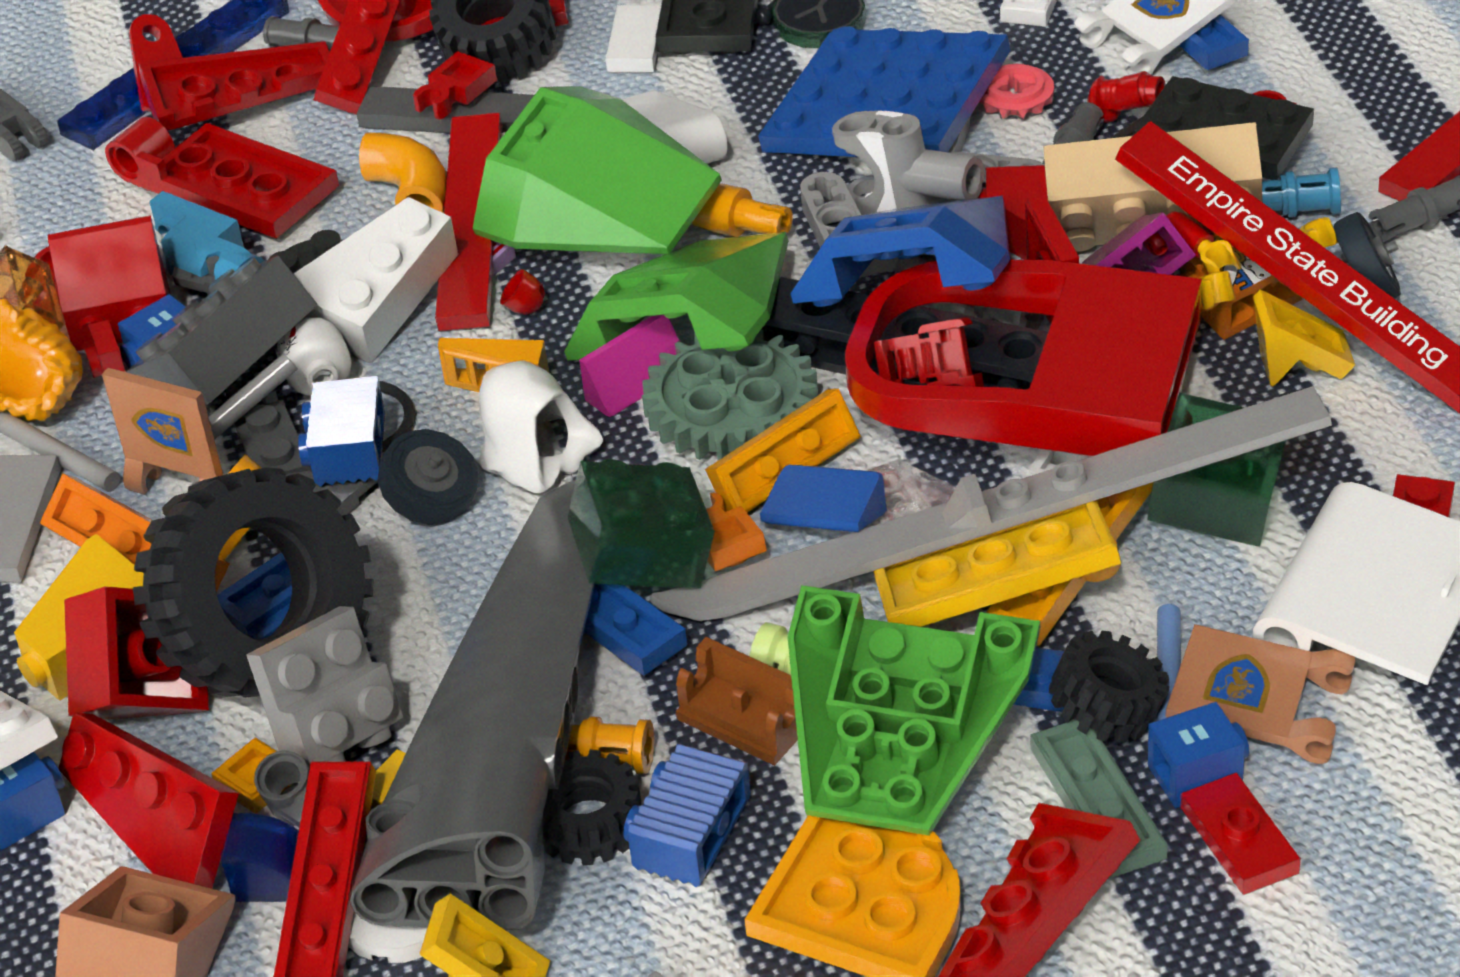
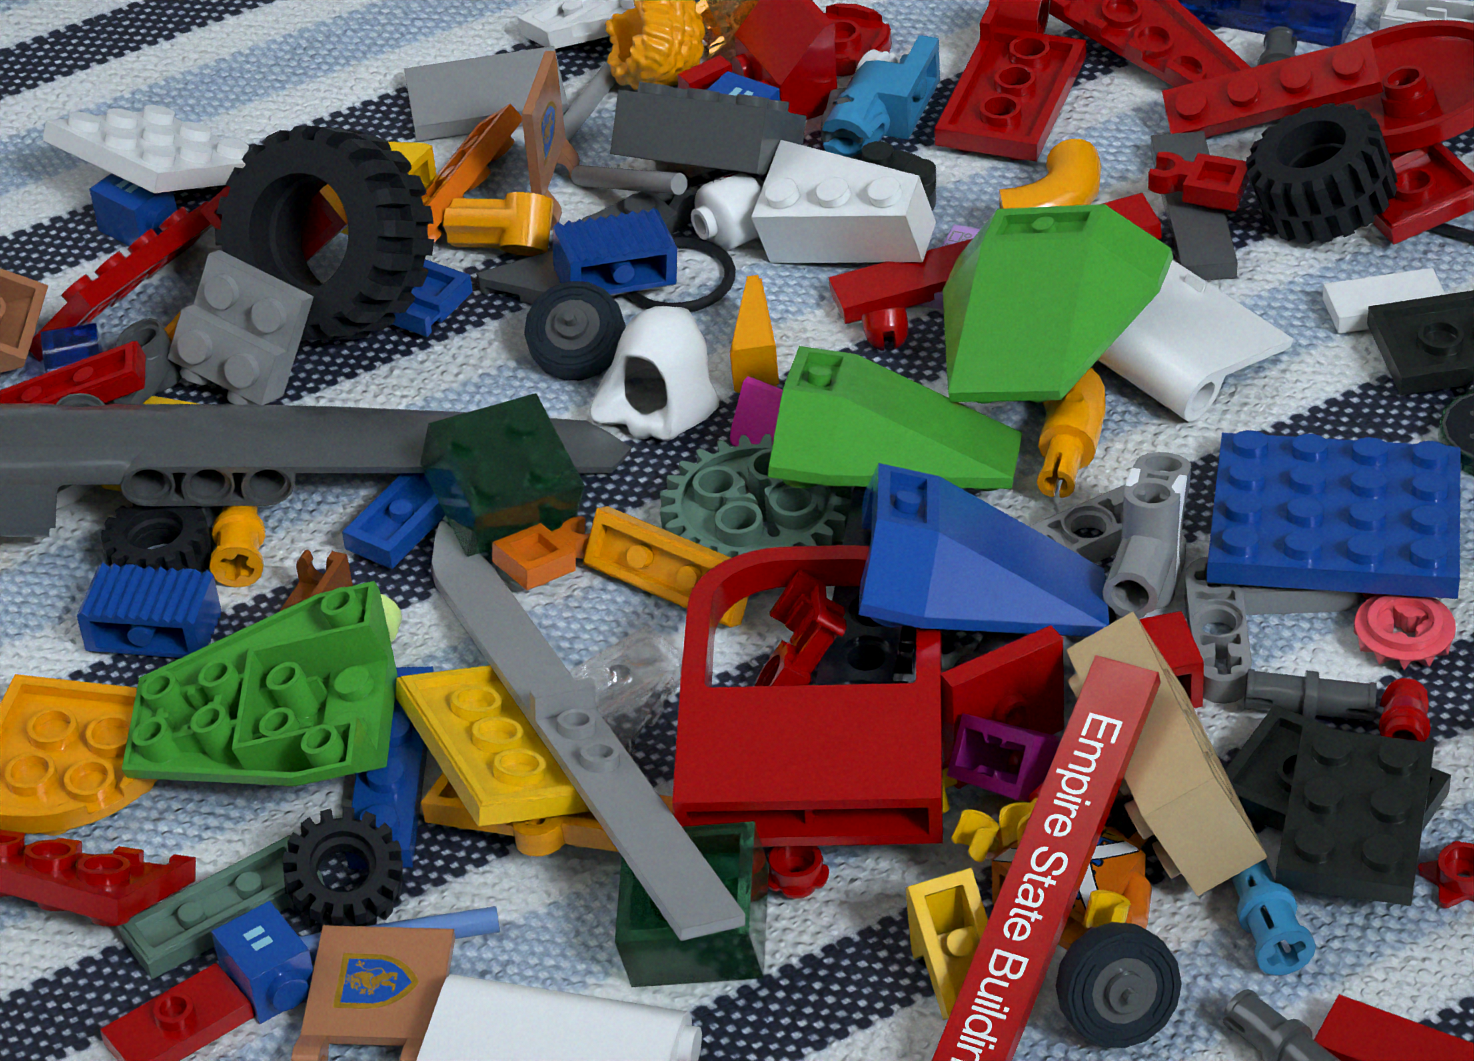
camera: 75 degrees right, 0 degrees up
(825, 498) = (587, 609): blue slope -> none

